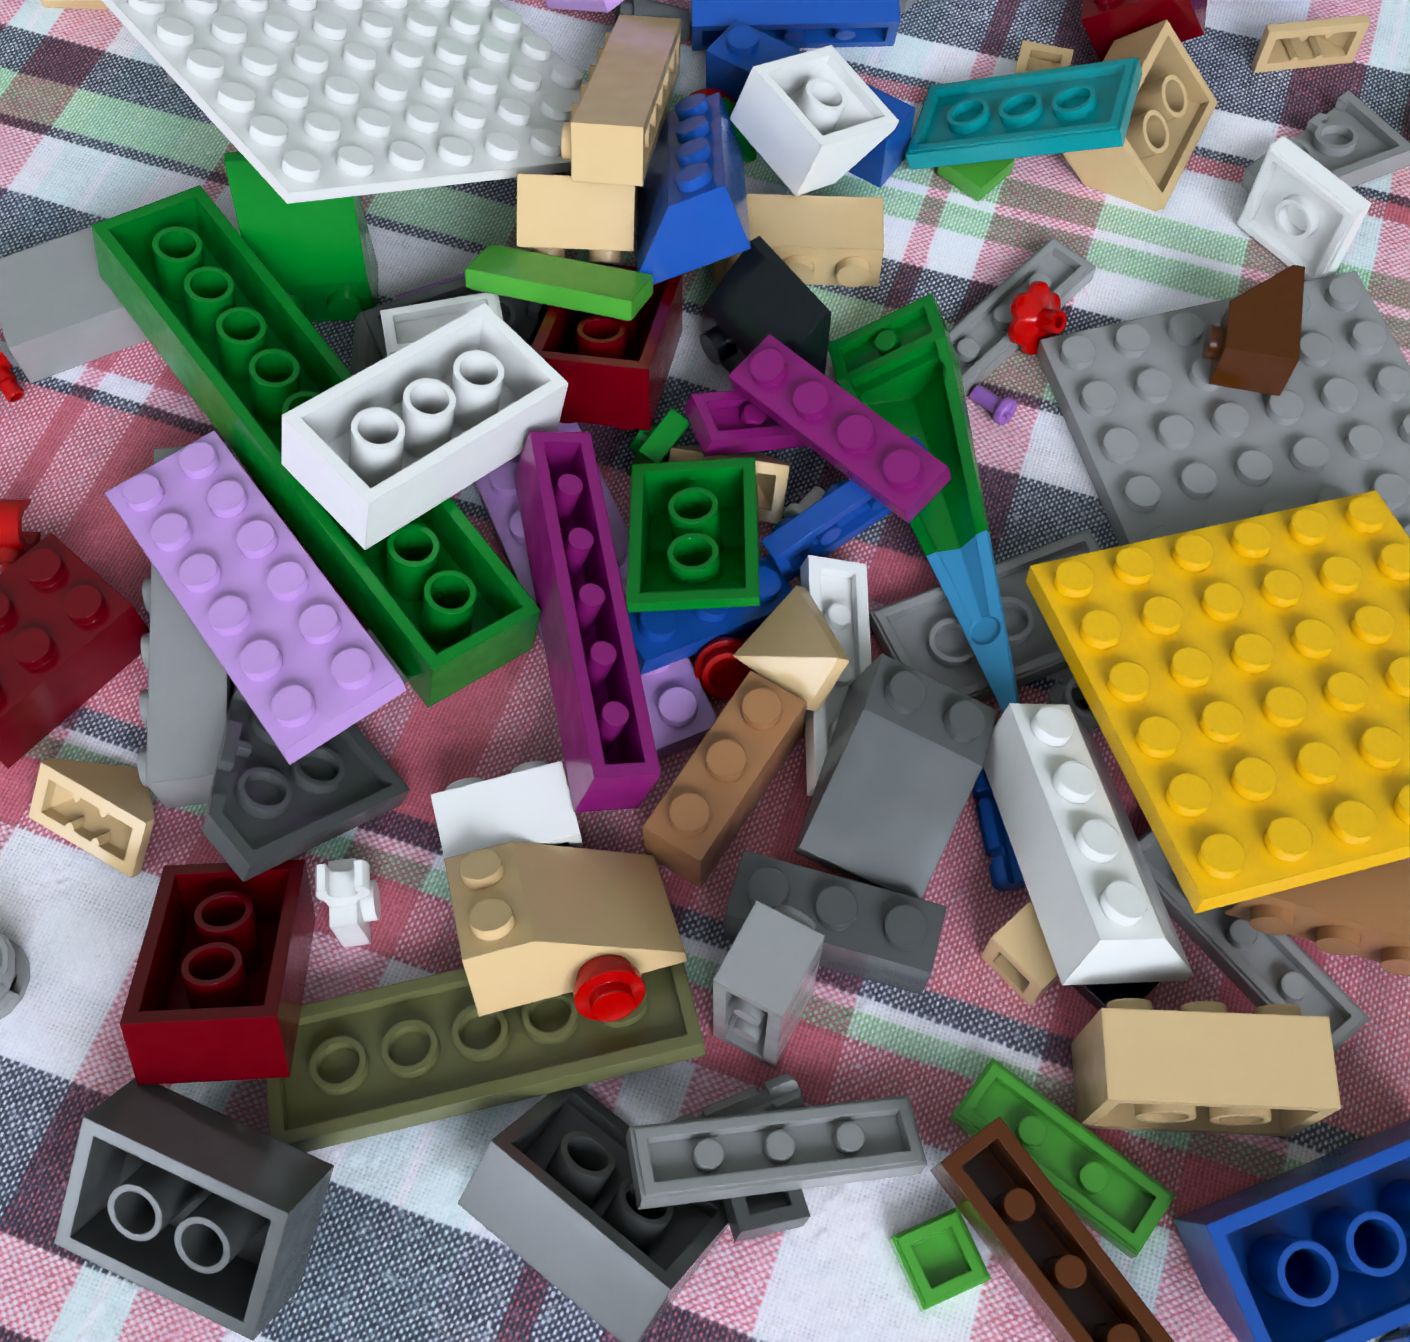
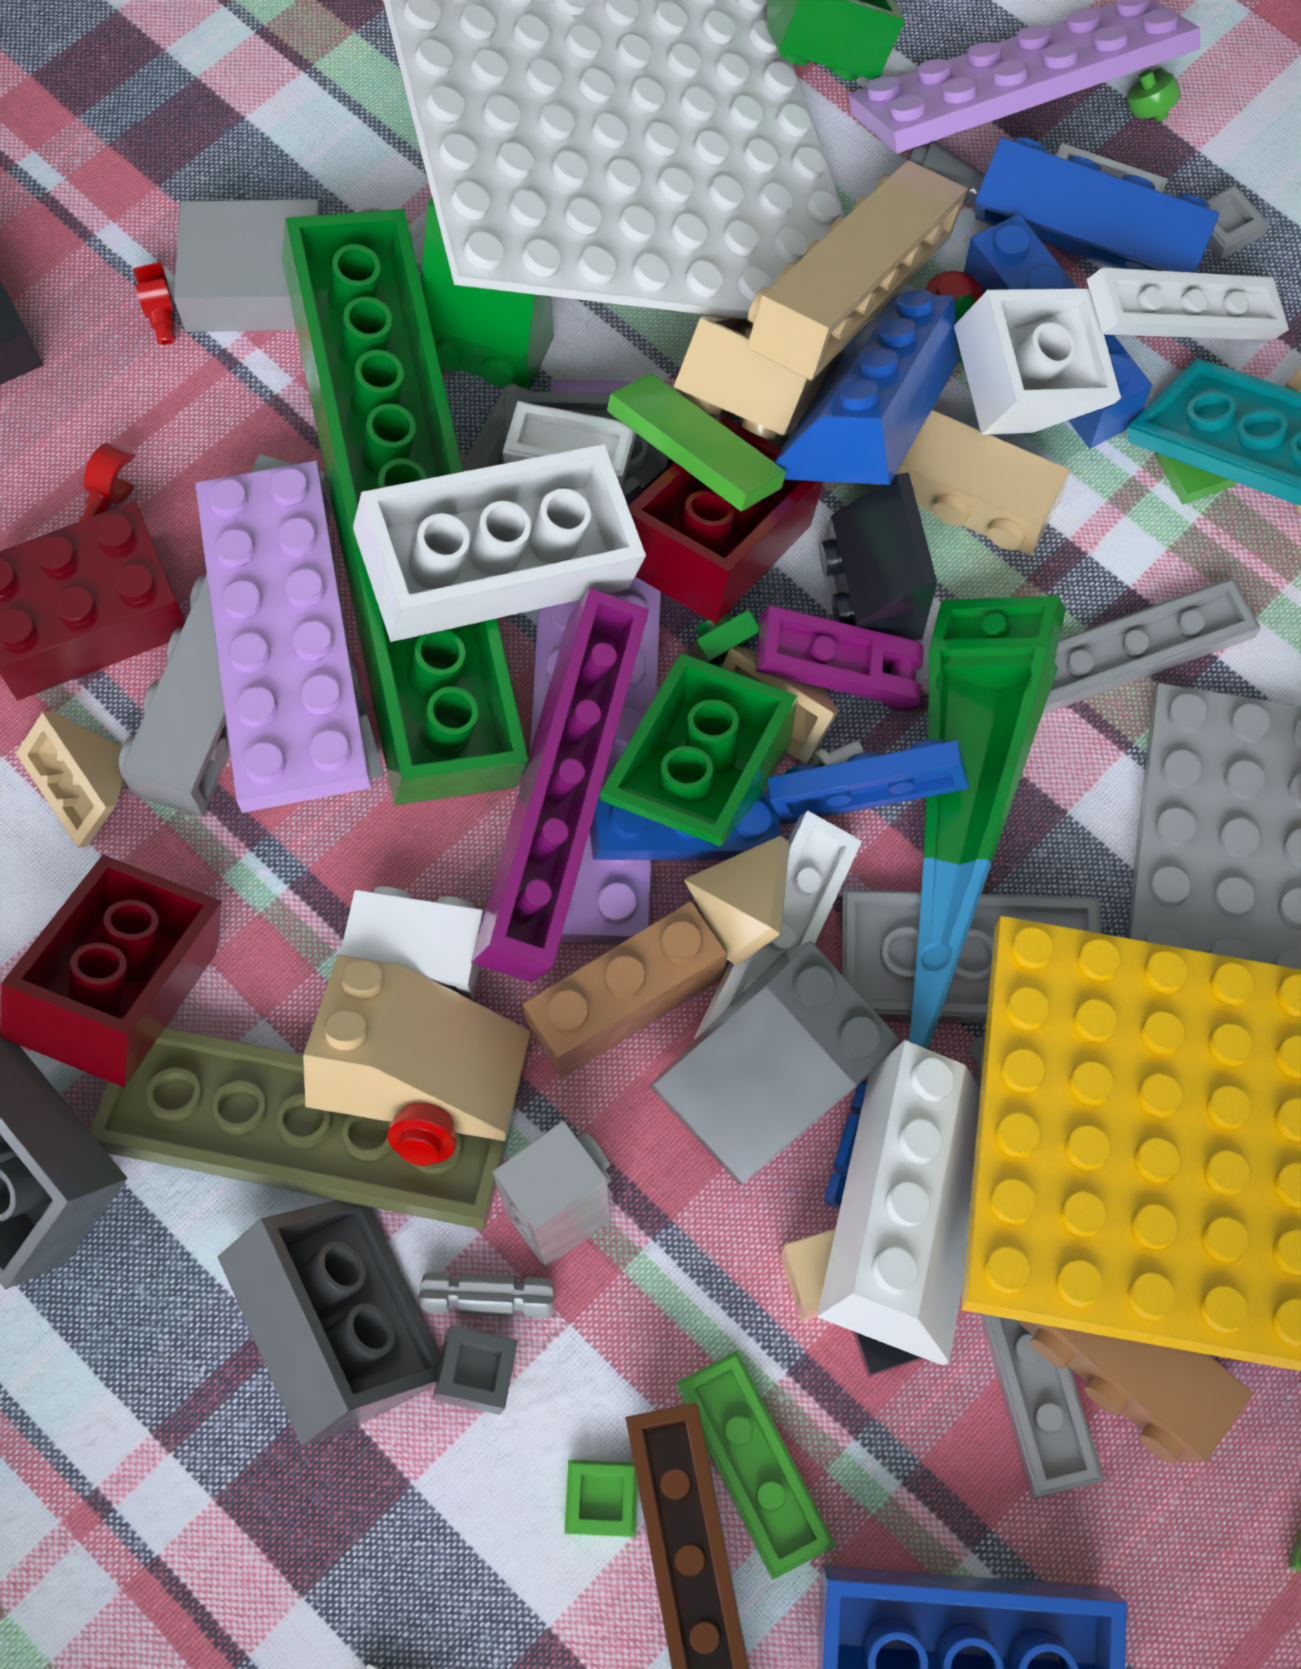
camera: 25 degrees right, 5 degrees up
(273, 810) = (213, 849): dark grey plate -> none
(350, 897) = (248, 952): white plate -> none
(718, 668) = (668, 884): red plate -> none
(773, 1151) = (502, 1340): light grey tile -> none
(840, 428) = (889, 701): magenta plate -> none
(864, 926) = (659, 1166): dark grey brick -> none
(906, 39) = (1186, 304): none -> white plate
(1001, 408) = (1083, 738): medium lavender piece -> none
(1035, 317) = (1163, 657): red plant -> none
(1204, 1069) = (910, 1449): tan brick -> none

